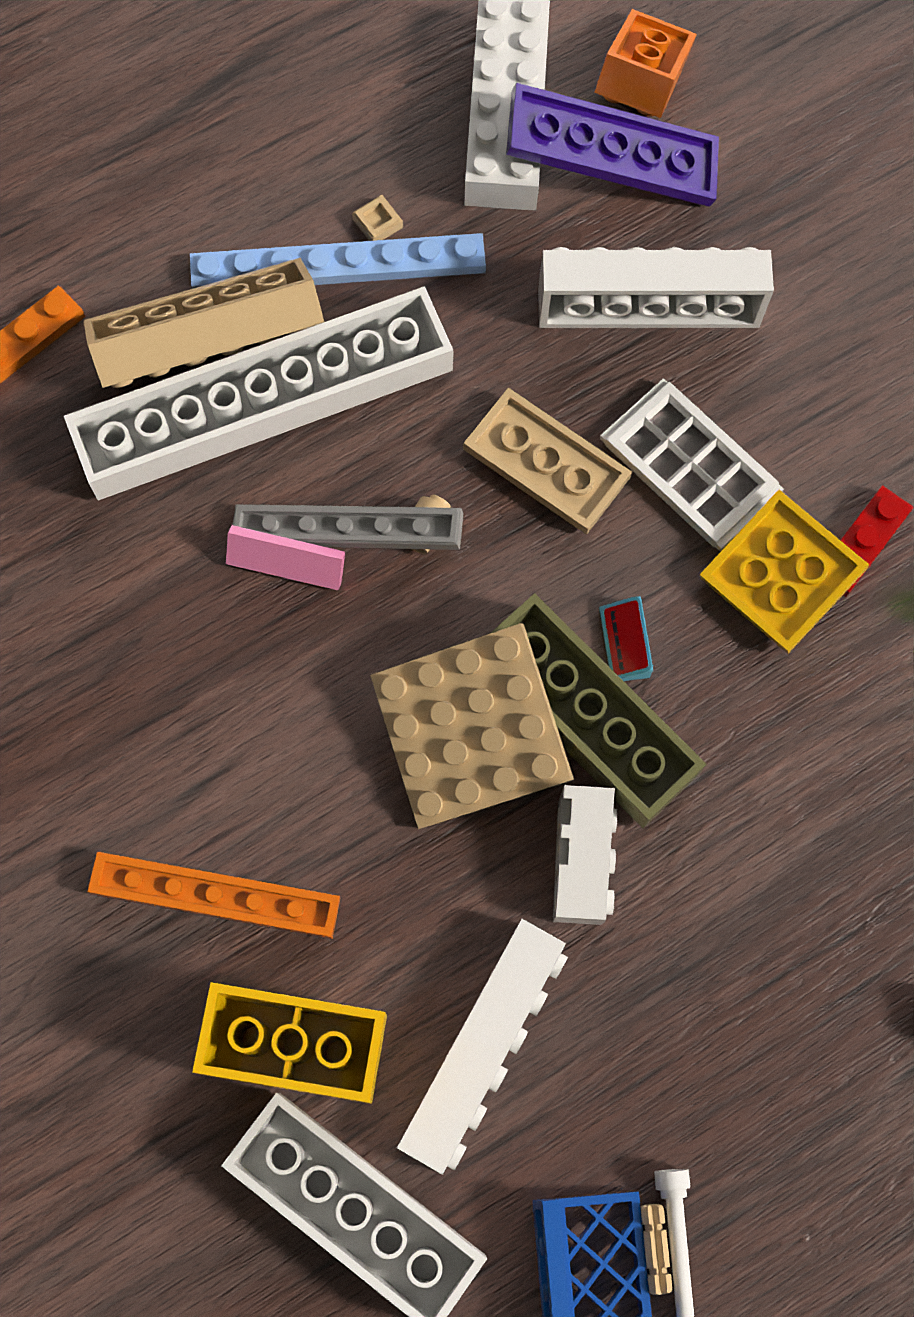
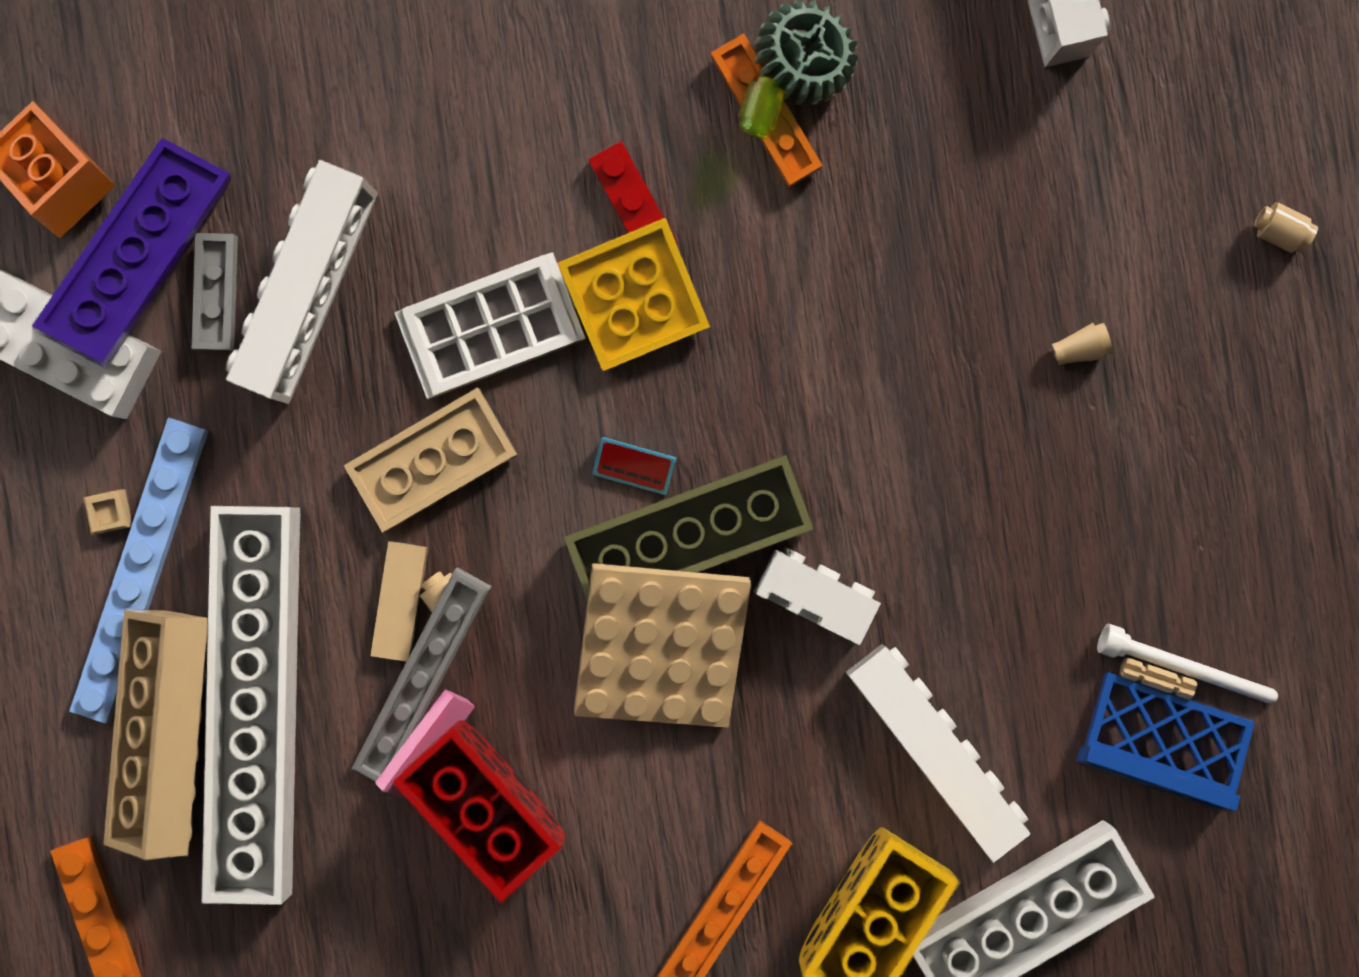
camera: 60 degrees left, 15 degrees up
(250, 617) = (481, 809): none -> red brick
(408, 483) = (399, 601): none -> tan tile
(611, 225) = (214, 292): none -> light grey plate

